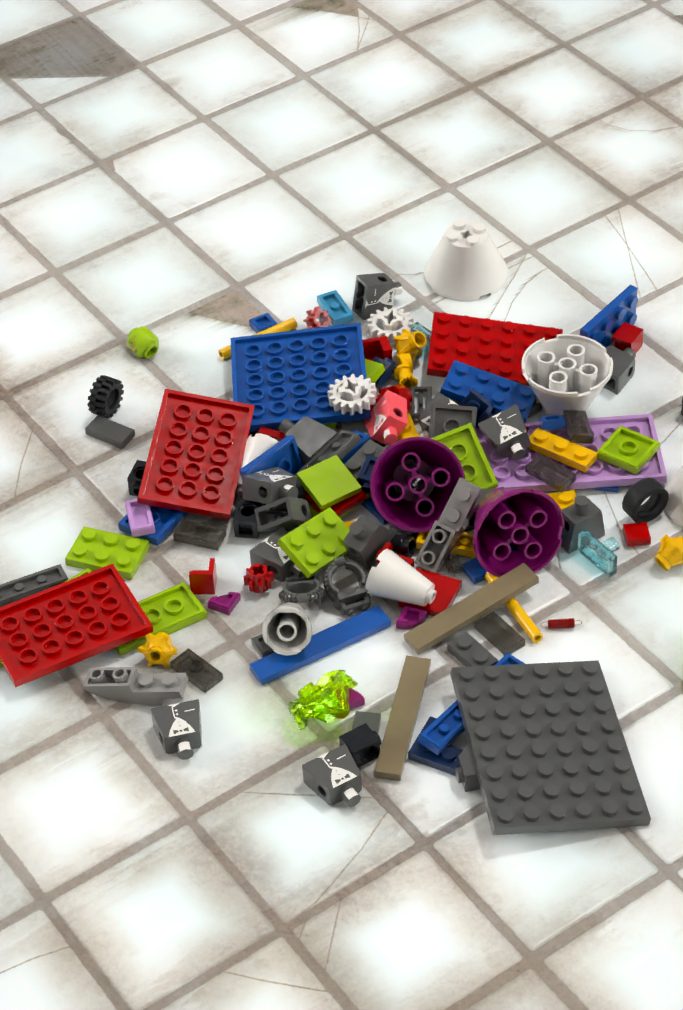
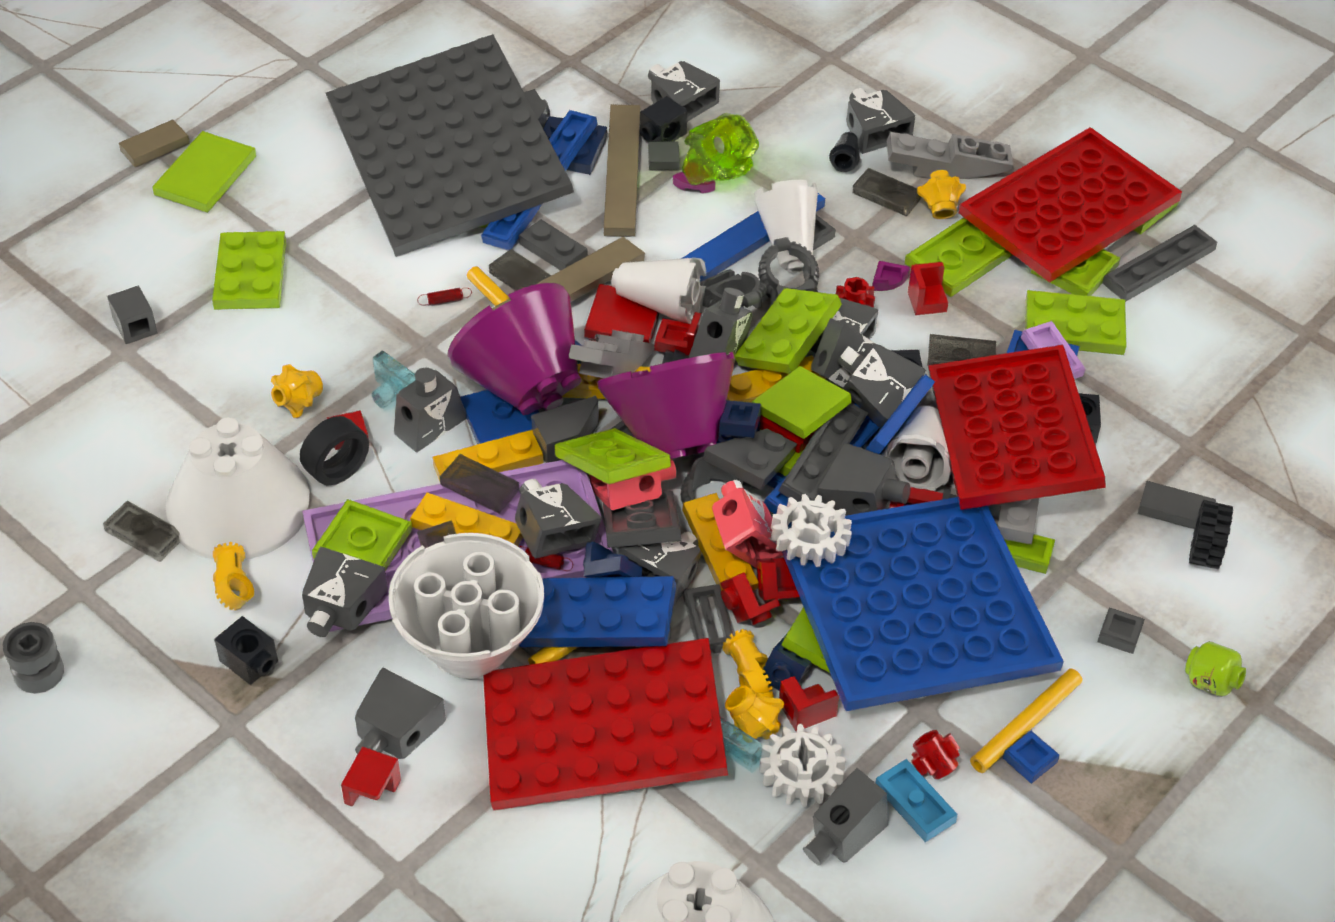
camera: 165 degrees right, 5 degrees up
(182, 374) = (1120, 630): none -> dark grey tile
(217, 702) = (845, 153): none -> black cone
(610, 318) = (404, 785): blue plate -> none
(641, 413) = (341, 591): none -> dark grey torso

